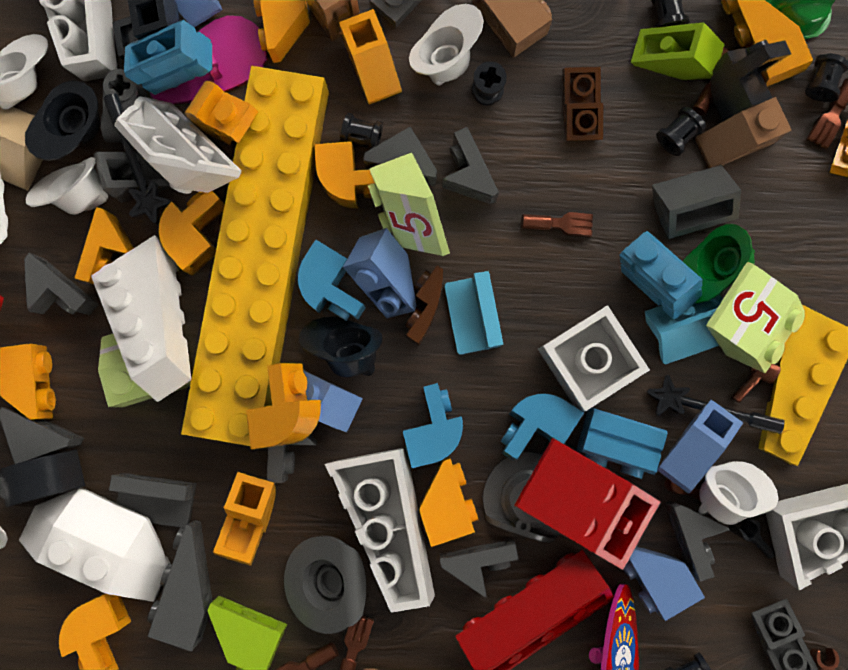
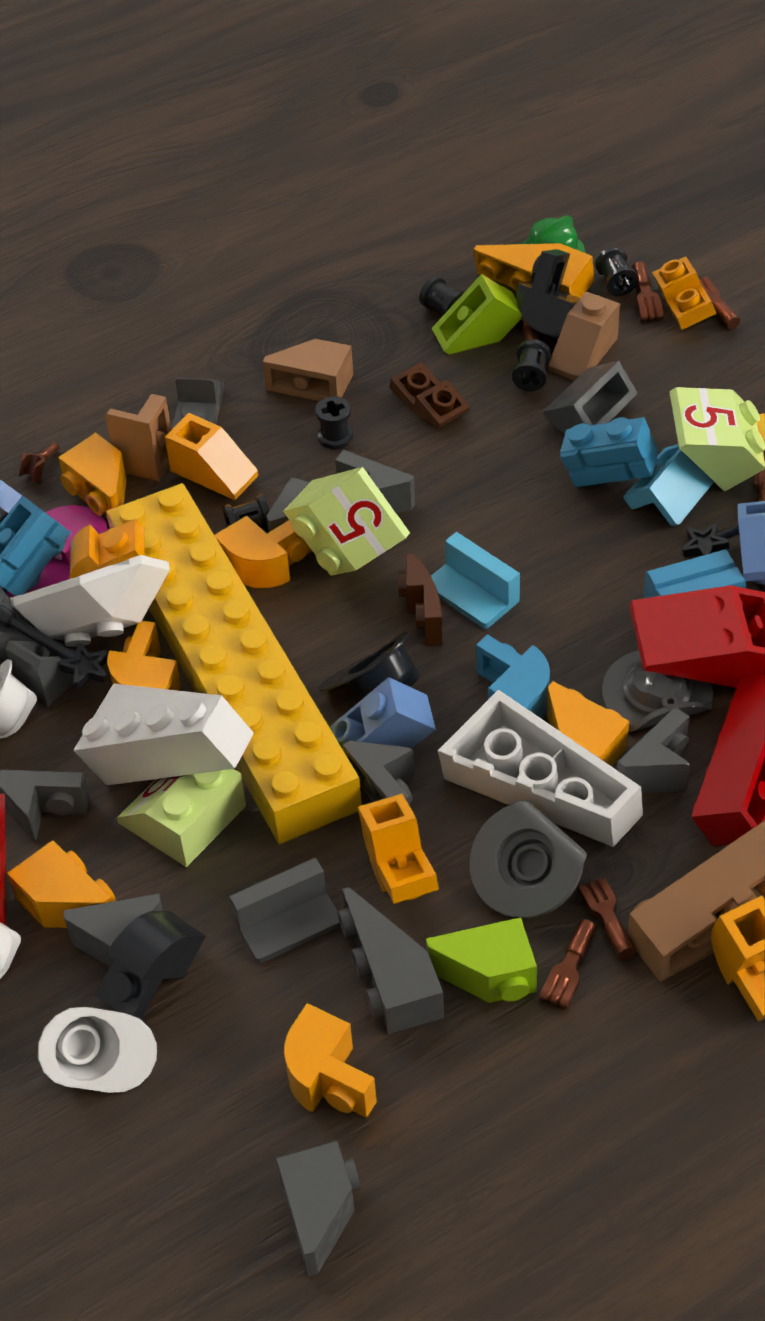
camera: 35 degrees left, 35 degrees down
(97, 544) = (255, 987): white wedge -> none
(103, 240) = (64, 728): light orange slope -> none
(291, 414) = (370, 722): light orange brick -> none
(318, 282) = (313, 642): dark azure brick -> none
(383, 272) = (363, 595): medium blue slope -> none
(446, 45) = (274, 413): white piece -> none
(541, 414) = (605, 616): dark azure brick -> none
(570, 224) = (496, 479): copper piece -> none
(593, 359) = (609, 542): white brick -> none
(720, 259) = (653, 402): green piece -> none

